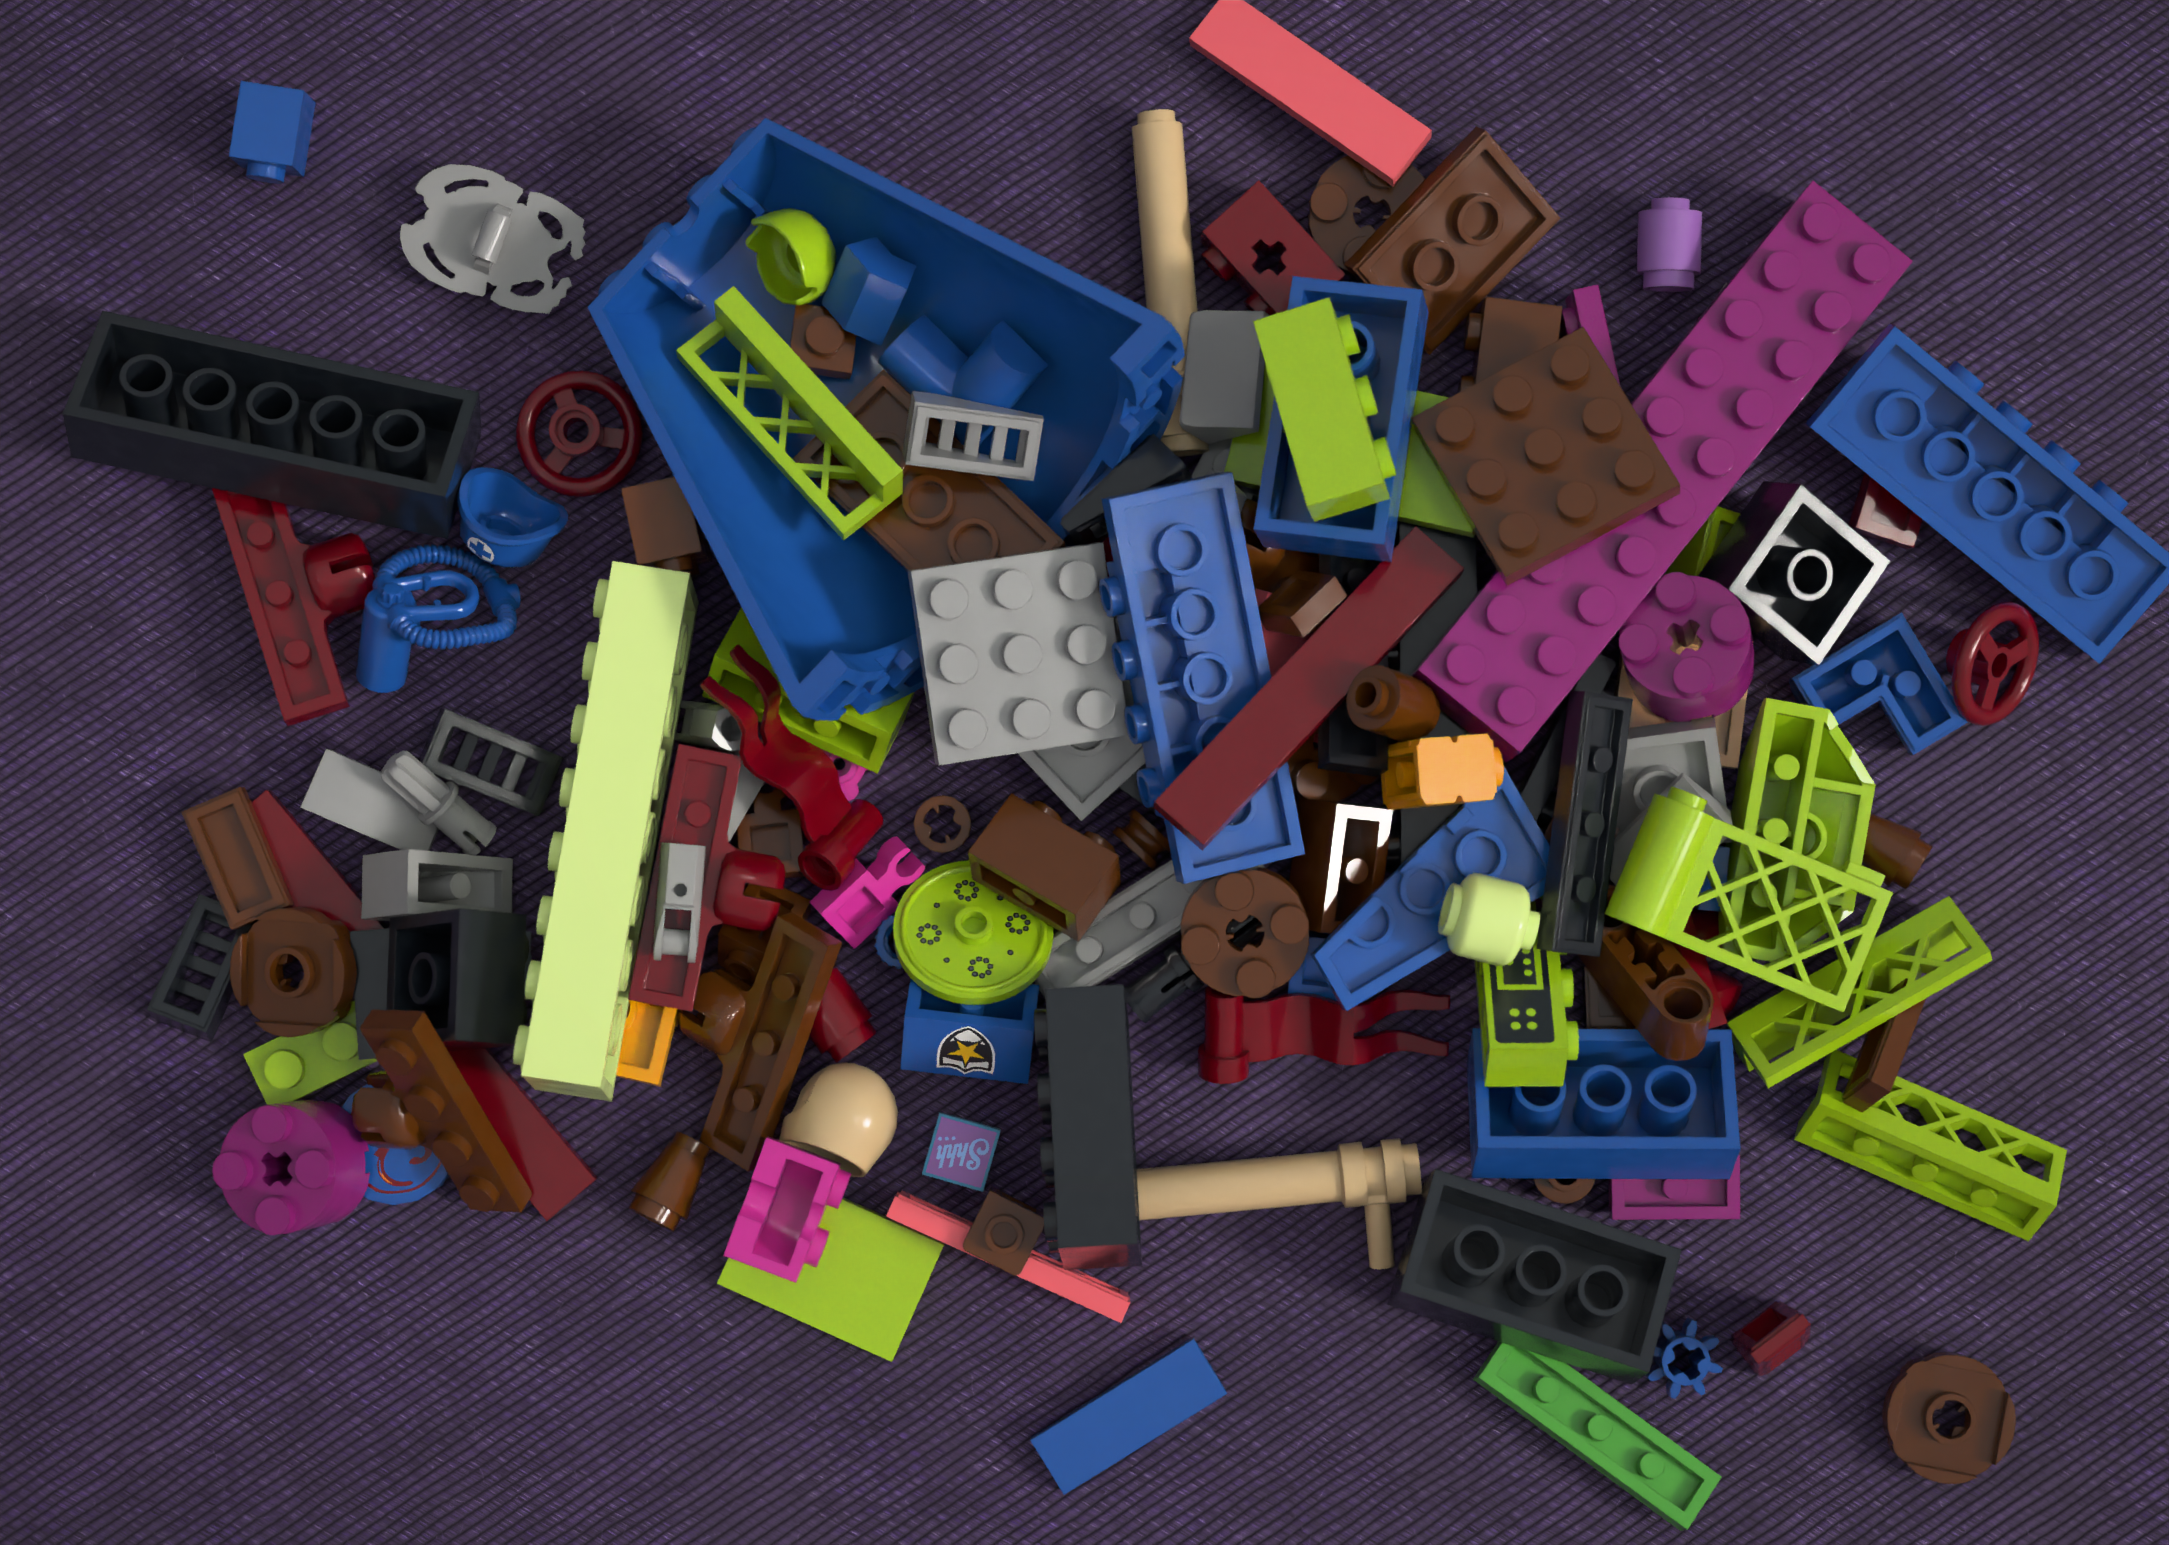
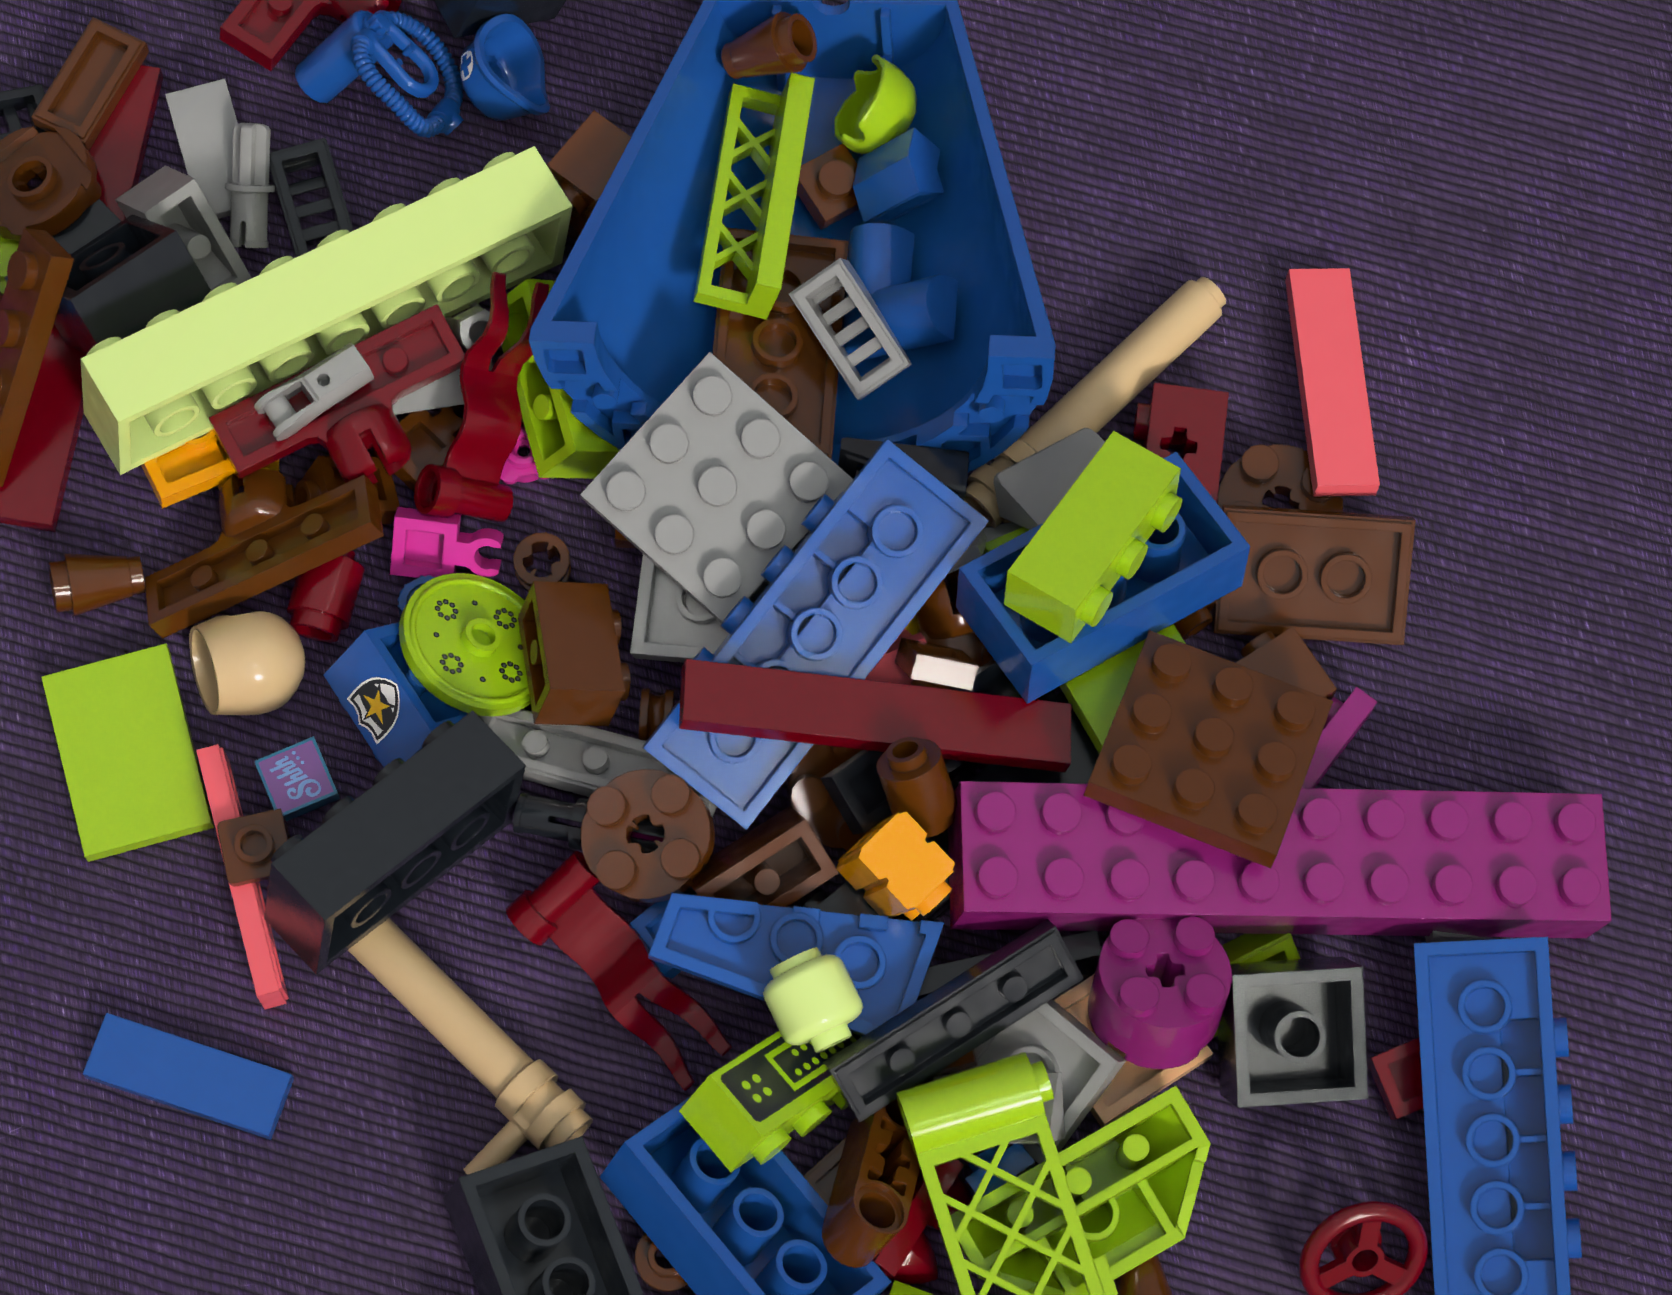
camera: 50 degrees right, 15 degrees down
(569, 411) = (617, 52): dark red piece -> none
(680, 298) = (771, 48): none -> reddish brown cone
(785, 1208) = (141, 672): dark pink cylinder -> none
(1669, 245) = (1456, 740): medium lavender brick -> none
(1886, 669) = (1286, 1183): blue brick -> none

